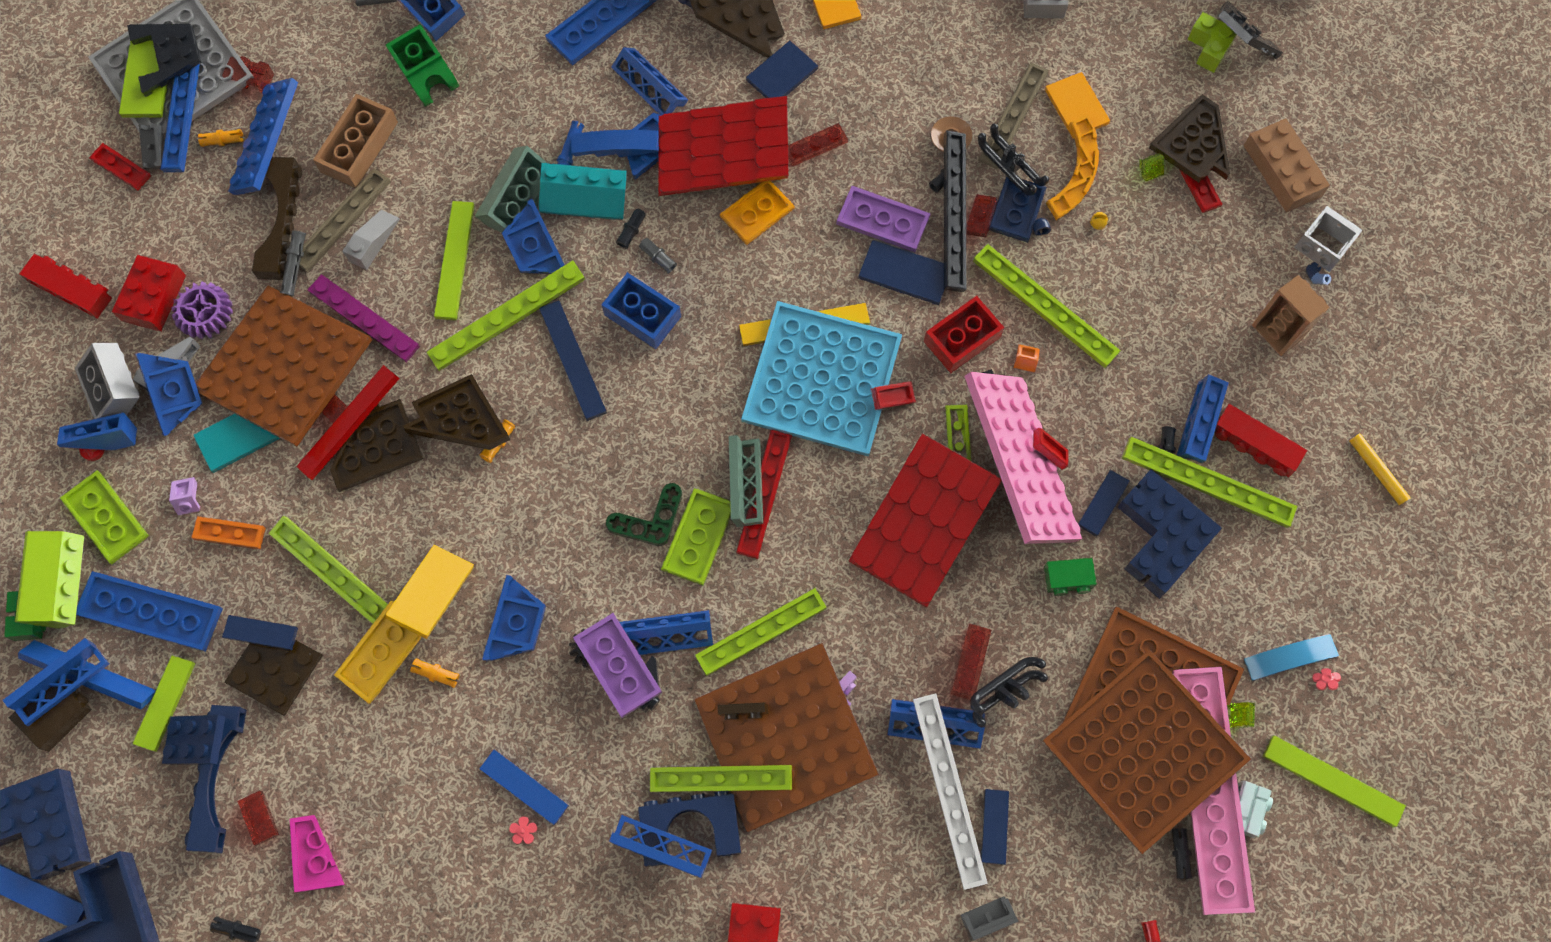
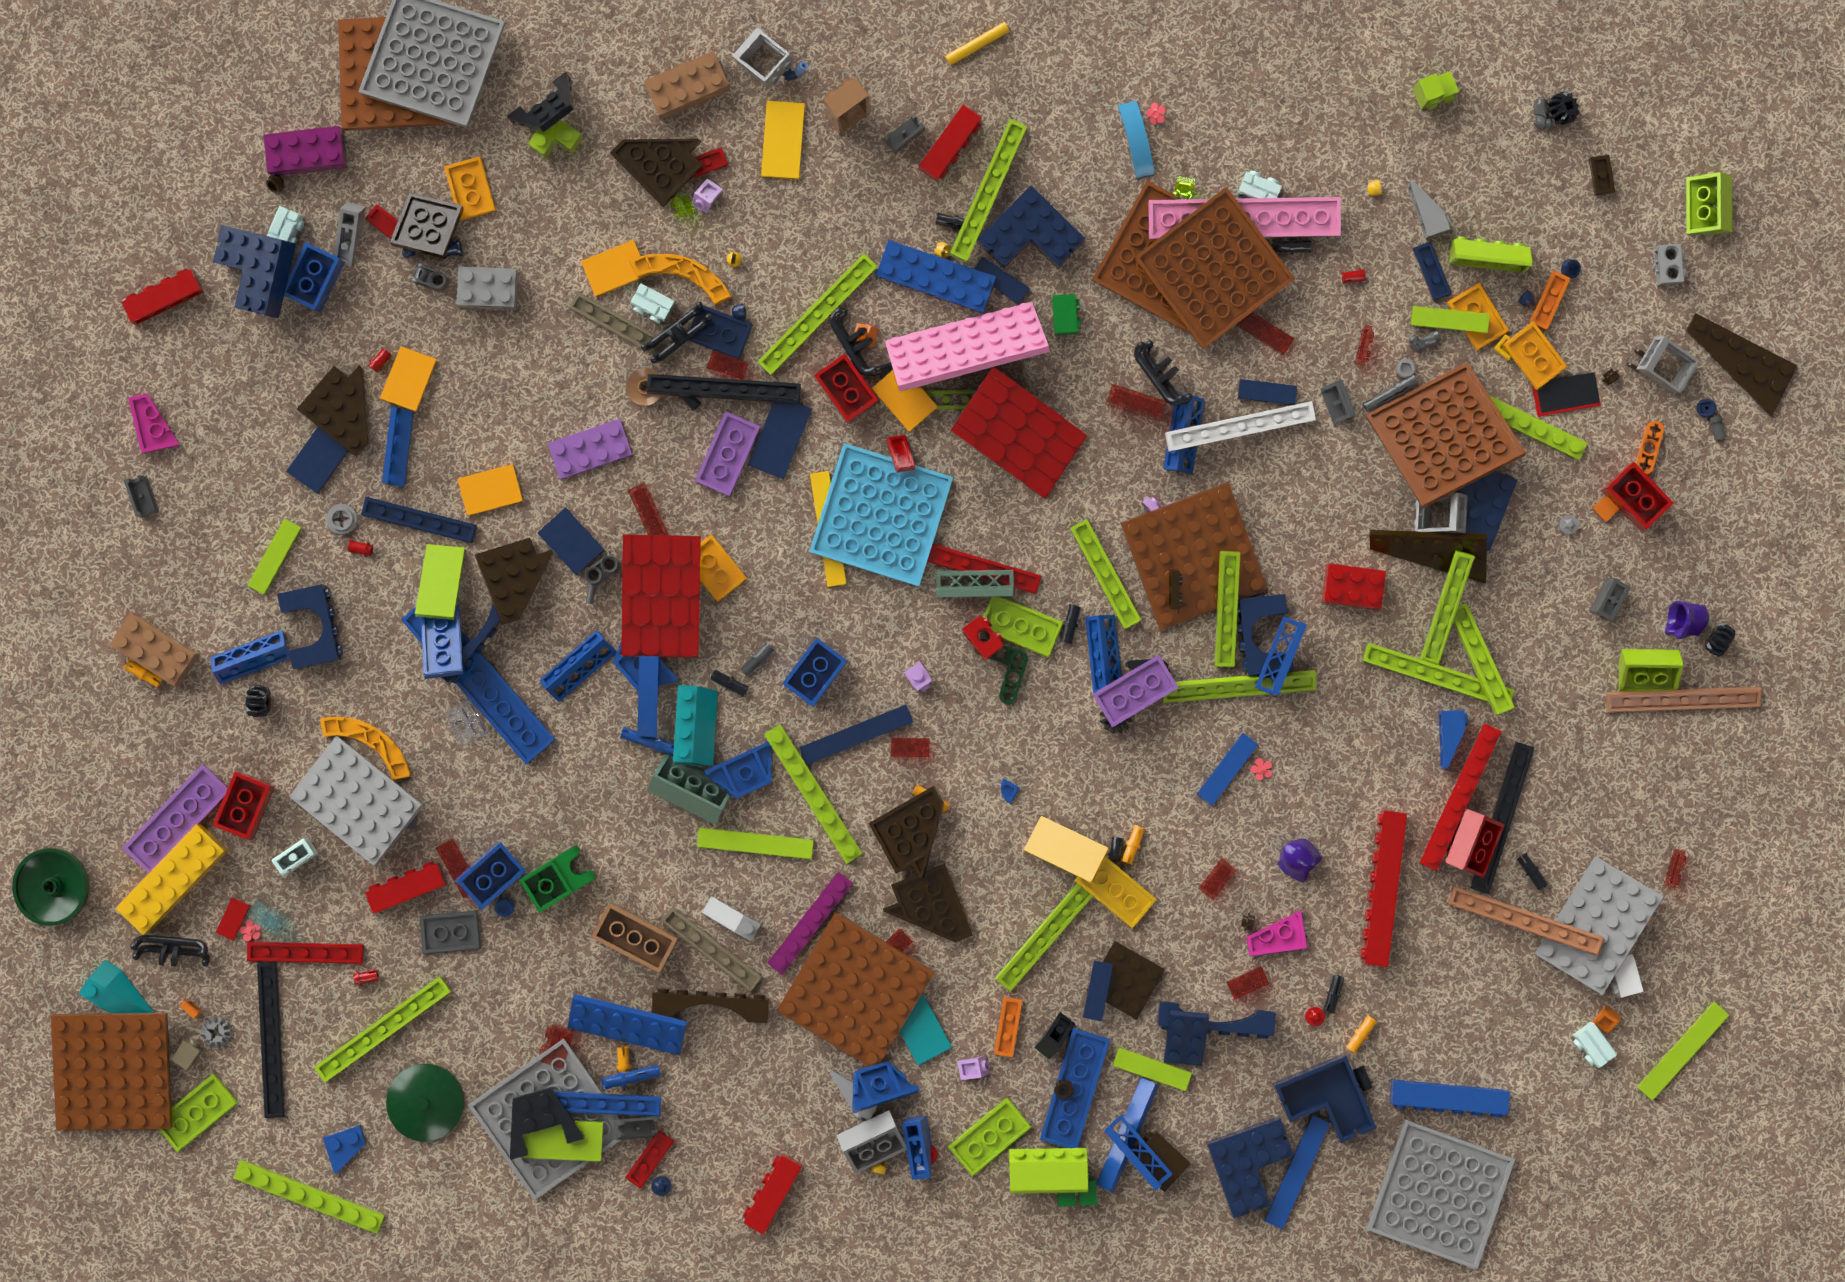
camera: 90 degrees left, 15 degrees up
(78, 395) = (879, 1168): none -> yellow hinge
(90, 178) = (661, 1185): none -> dark blue tile
(140, 594) = (1058, 1089): none -> dark brown plate
(149, 293) = (783, 1116): red brick -> none
(196, 304) = (791, 1067): medium lavender gear -> none
(204, 131) = (622, 1079): none -> blue pin
(210, 906) = (1314, 1016): none -> red tile
(213, 586) = (1054, 1035): none -> black slope
(293, 262) = (750, 986): dark grey pin -> none
(333, 817) = (1248, 922): none -> dark brown plate
(347, 422) = (912, 928): red tile -> none
(389, 777) = (1217, 879): none -> clear red plate
(397, 23) = (504, 907): none -> blue plate
(408, 881) = (1299, 859): none -> dark purple piece
(430, 652) = (1115, 849): none -> black pin
(505, 528) = (1008, 790): none -> blue tile
(514, 623) = (1091, 778): blue wing -> none
(556, 417) = (910, 747): none -> clear red plate
(625, 800) = (1238, 686): none -> lime plate
(637, 424) = (919, 677): none -> lavender bracket
(687, 477) = (987, 648): none -> red brick
(700, 592) = (1070, 624): none -> black pin
(742, 87) = (603, 574): none -> dark grey beam
(881, 88) = (590, 449): none -> medium lavender plate
(951, 402) = (908, 405): none -> light orange tile
(1015, 337) = (848, 343): none -> black piece
(1042, 140) = (652, 303): none -> light aqua brick
(1050, 448) = (954, 321): red tile -> none
(1069, 822) = (1266, 333): none -> clear red plate
(1101, 431) = (936, 276): none -> blue plate
(1132, 431) = (941, 247): none -> yellow hinge
(1167, 188) = (706, 195): none -> lavender bracket
(1202, 419) = (931, 189): blue fence -> none
(1238, 265) = (782, 140): none -> yellow tile
(1260, 392) = (904, 134): none -> dark grey hinge
(1334, 781) = (1237, 119): lime tile -> none

